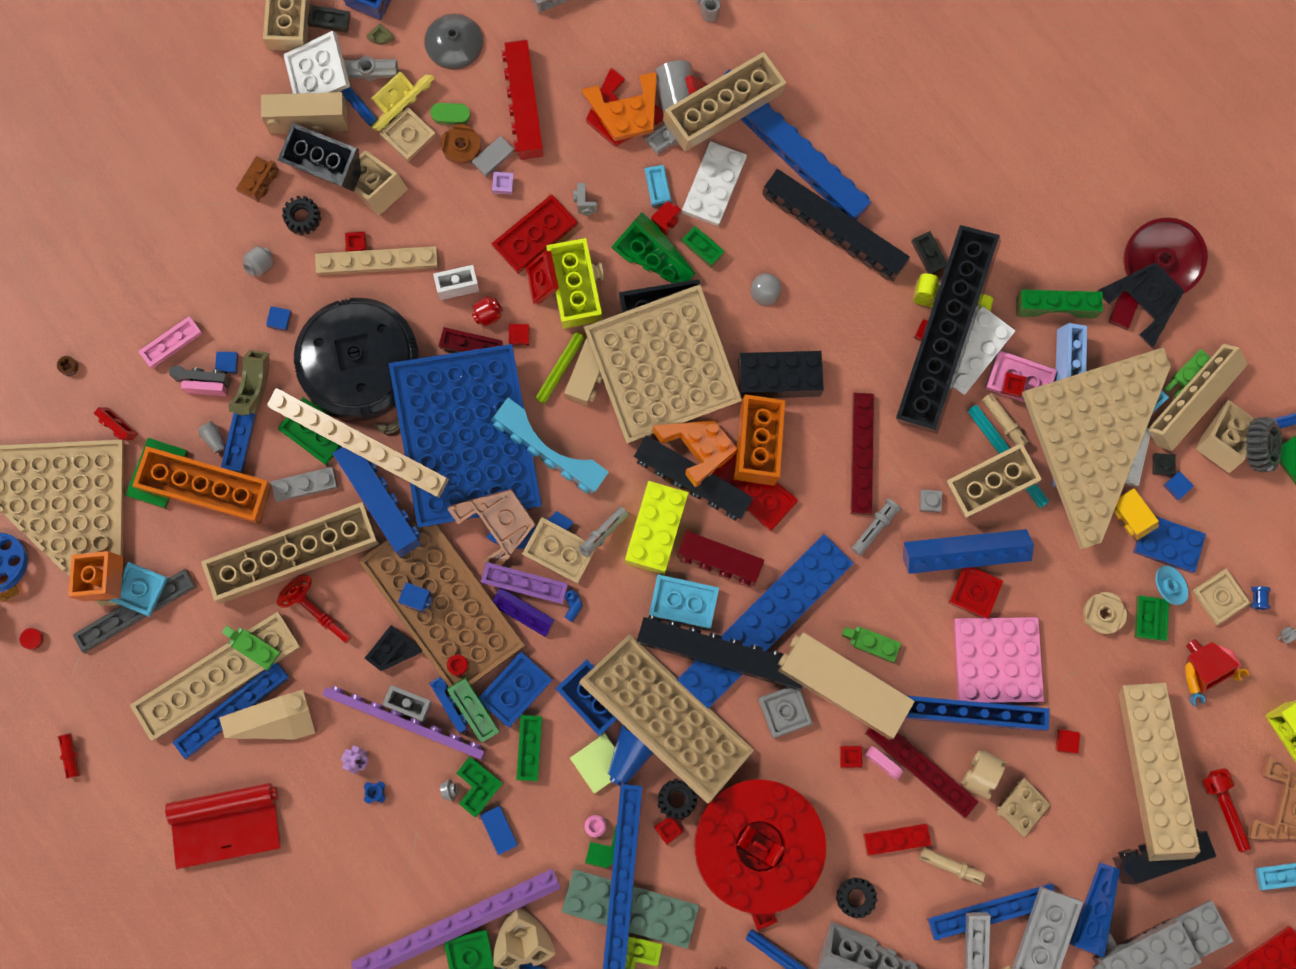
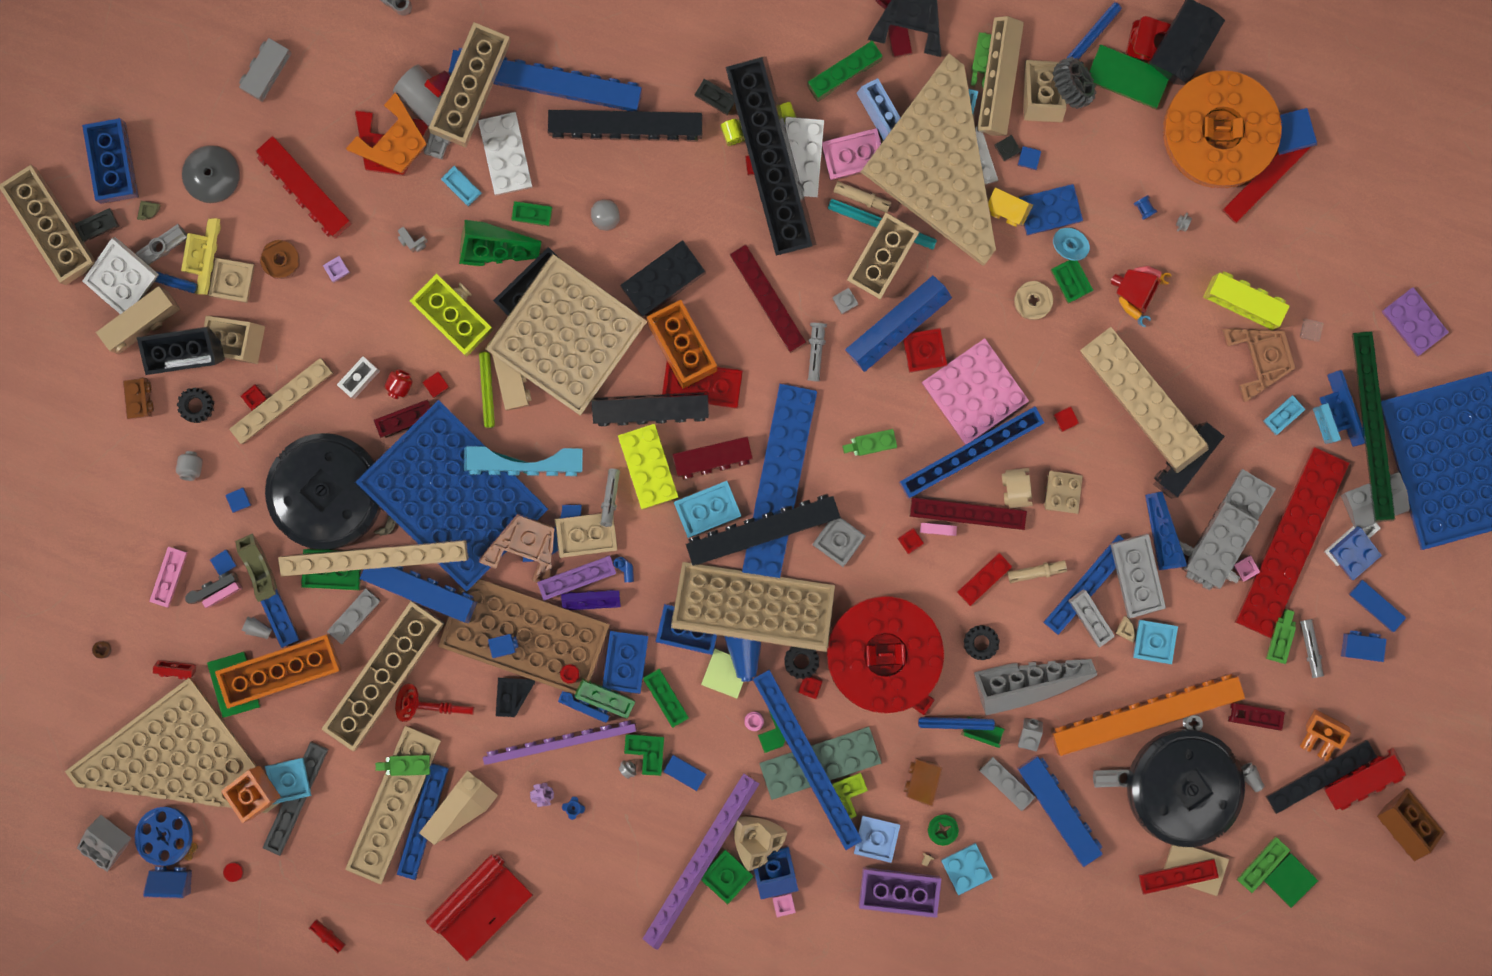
camera: 30 degrees left, 10 degrees up
(407, 703) = (552, 727): light grey brick -> none
(450, 113) = (252, 238): bright green tile -> none
(493, 156) = (312, 251): light grey tile -> none
(532, 233) = (390, 293): red tile -> none
(542, 277) = (423, 328): red tile -> none
(666, 217) = (487, 209): red brick -> none
(706, 443) = (641, 374): orange wing -> none
(845, 685) = (870, 493): tan brick -> none
(1013, 385) = (850, 165): red plate -> none
(1220, 597) = (1114, 226): tan tile -> none
(1220, 785) = (1199, 377): red piece -> none

